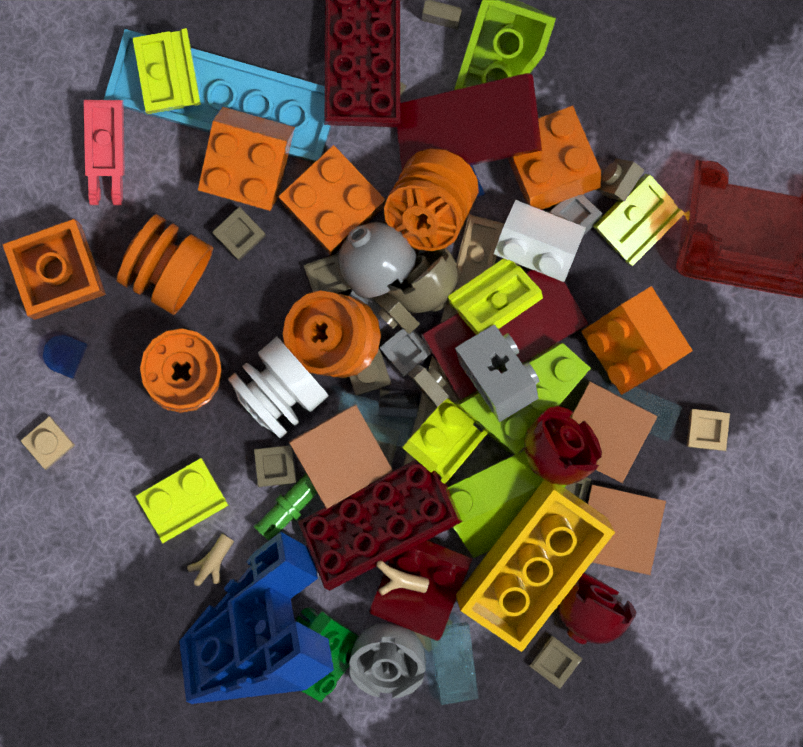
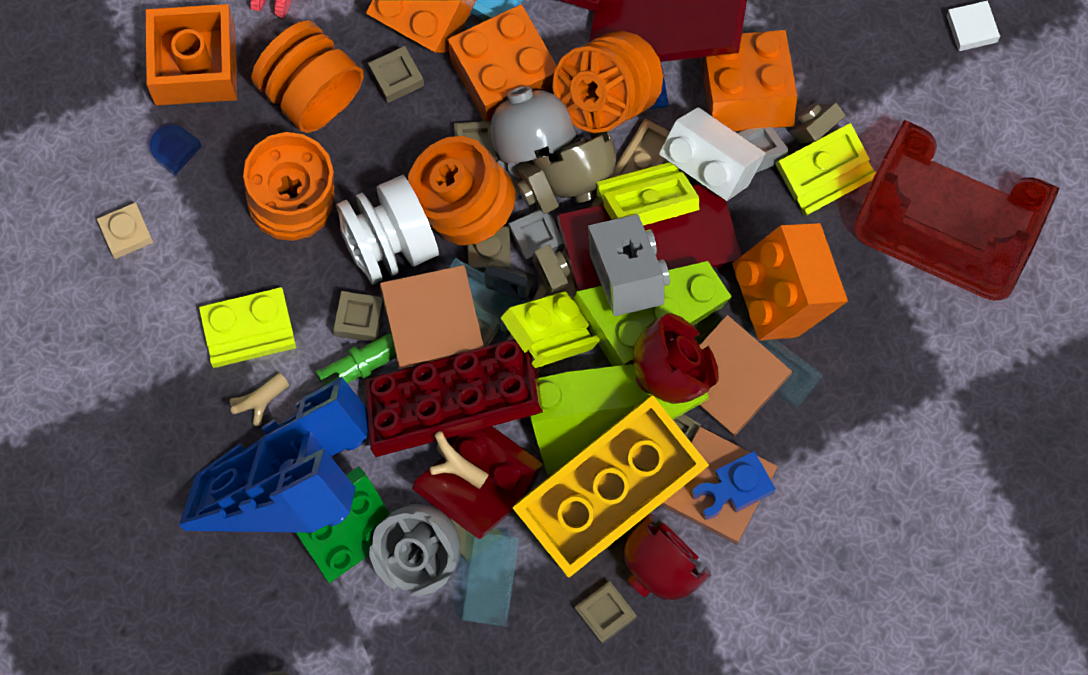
camera: 20 degrees right, 15 degrees down
(640, 528) = (739, 483): none -> blue plate
(708, 430) = (845, 405): tan plate -> none
(731, 45) = (973, 25): none -> white tile

